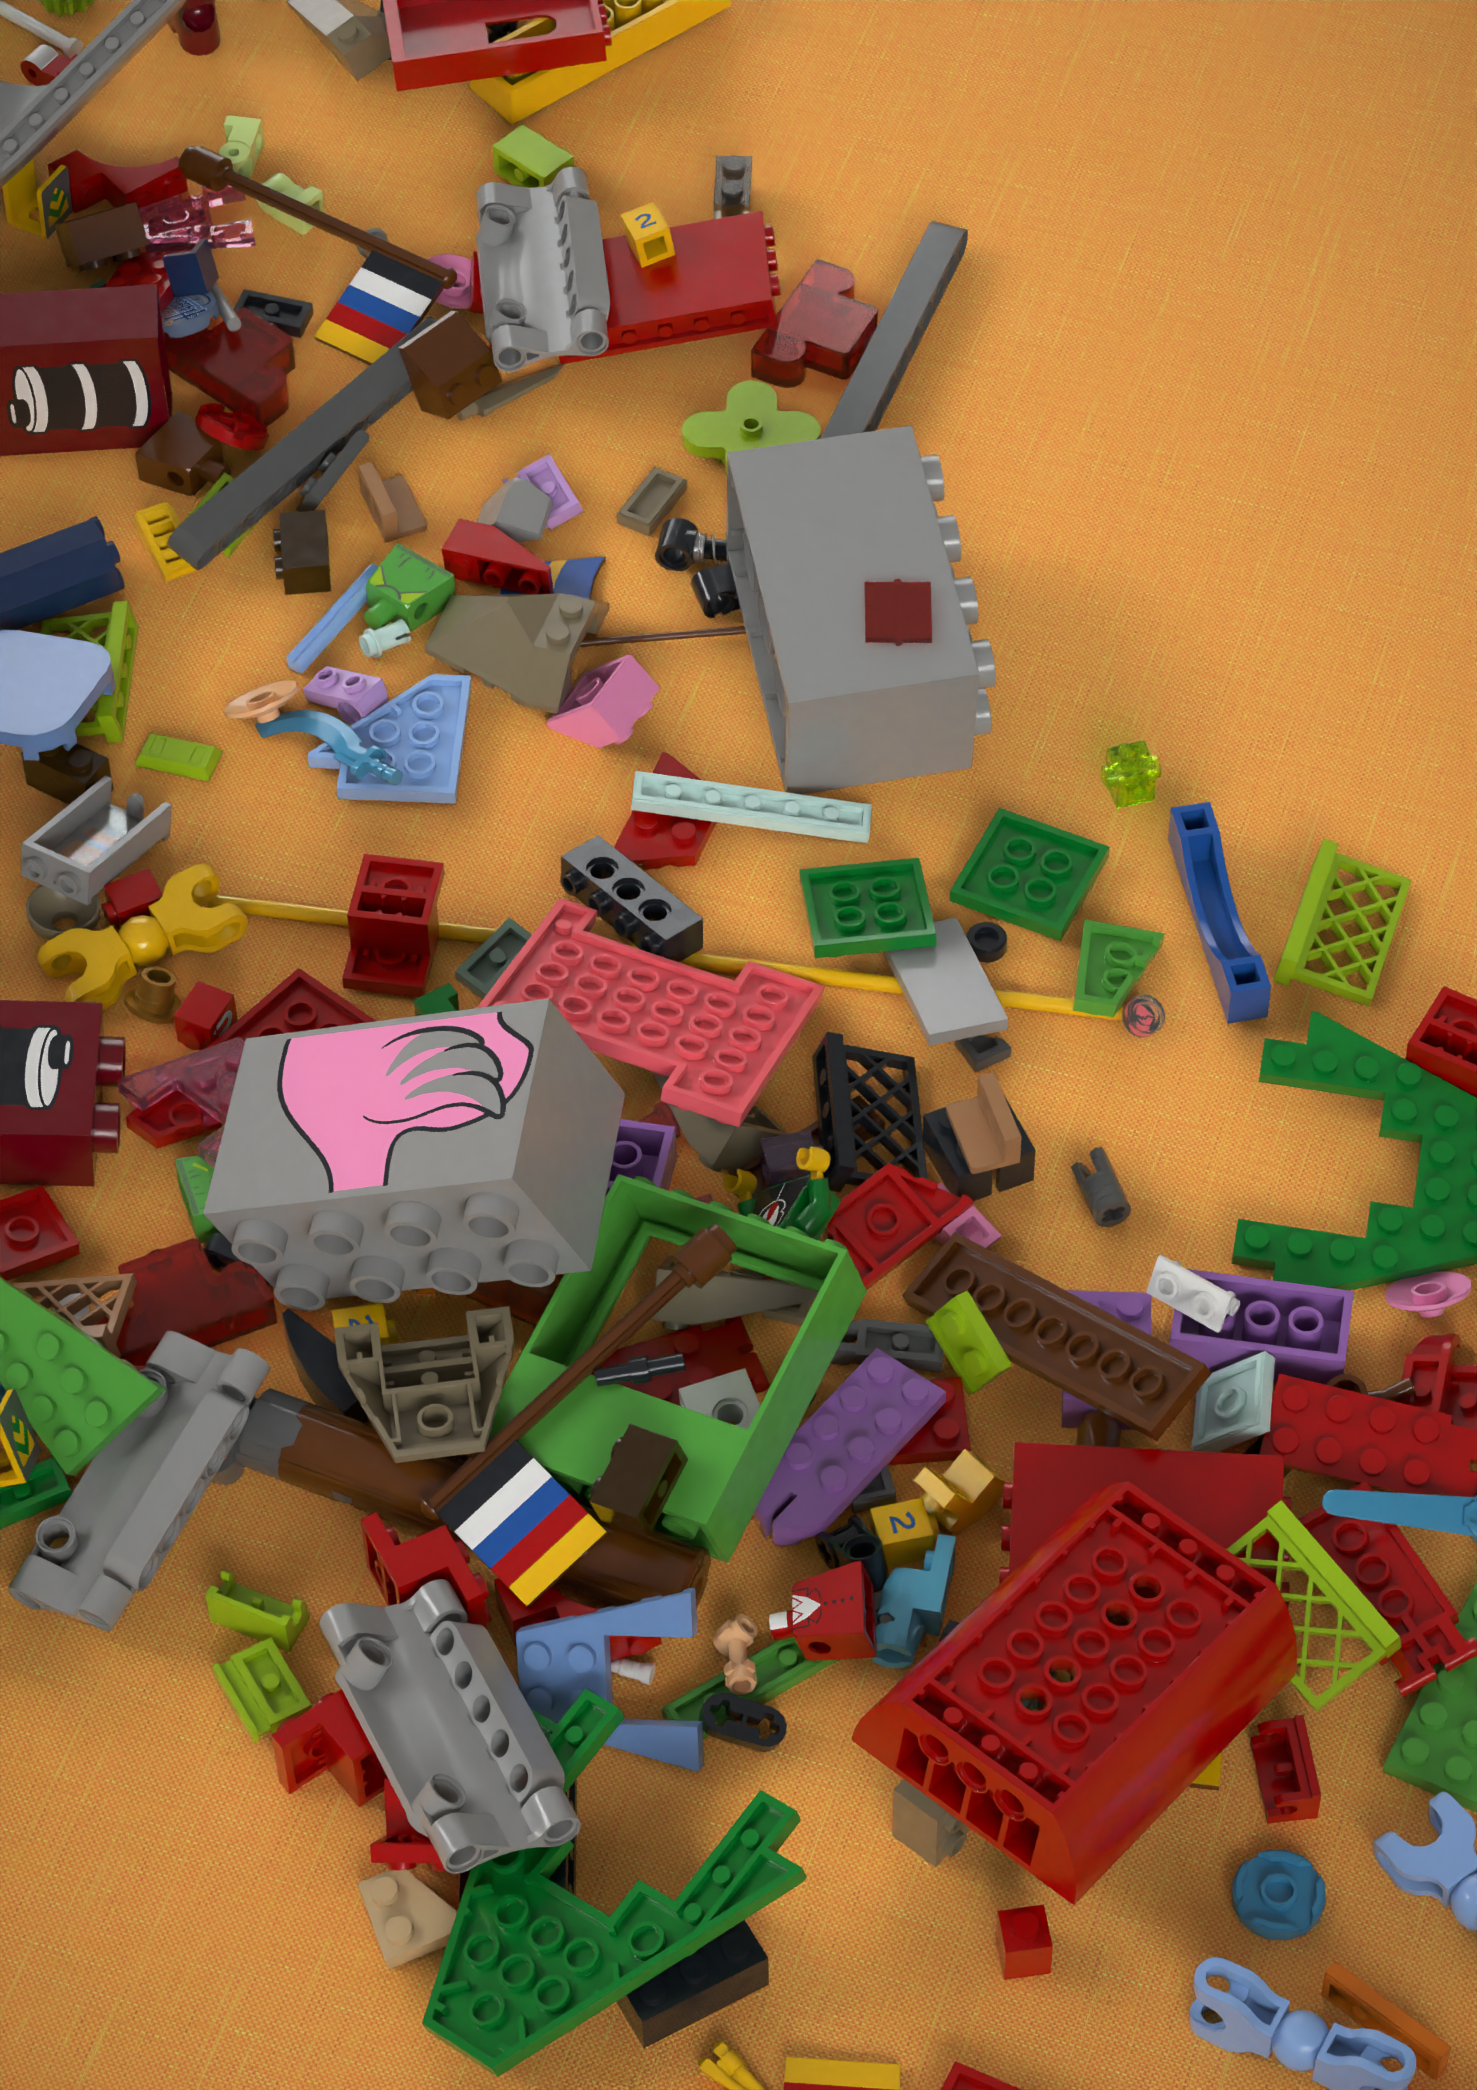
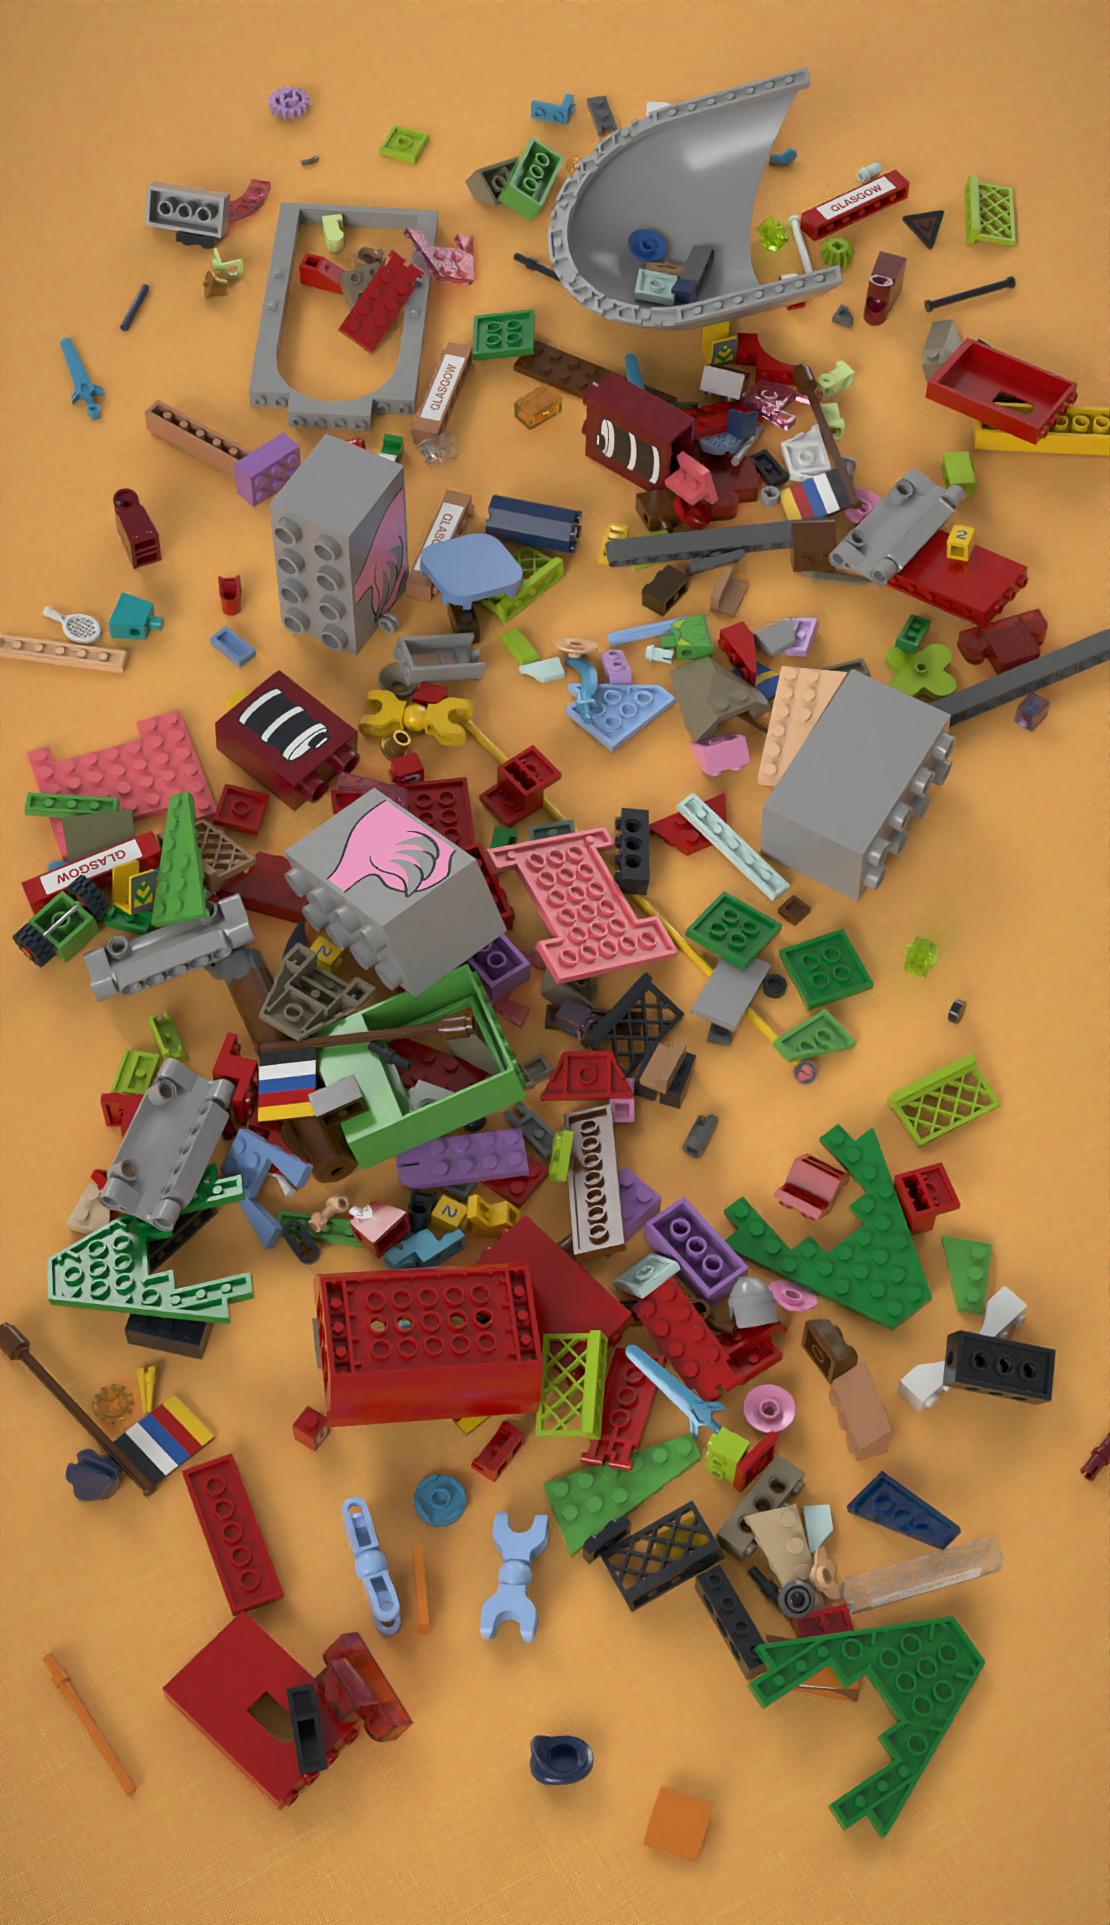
camera: 40 degrees right, 5 degrees up
(160, 66) = (843, 317): none -> dark grey tile
(208, 380) = (692, 481): none -> coral bracket
(248, 763) = (544, 670): none -> light aqua tile
(306, 266) = (805, 455): none -> white wing
(307, 355) = (770, 501): none -> light grey bush
(653, 583) = (797, 707): none -> light nougat wing
(695, 392) = (912, 634): none -> green plate
(733, 186) = (1037, 550): clear smoke brick -> none
(798, 1203) = (545, 1039): torso -> none
(898, 612) = (853, 799): clear red piece -> none
(908, 833) = (794, 910): none -> reddish brown tile
(938, 390) = (1032, 711): none -> brick
(1191, 1294) = (670, 1201): white hinge -> none
(1230, 956) = (903, 1028): blue arch -> none
(1242, 808) = (957, 1011): none -> tile
(1312, 1142) = (811, 1187): none -> bracket
(1402, 1331) = (751, 1303): none -> light grey helmet

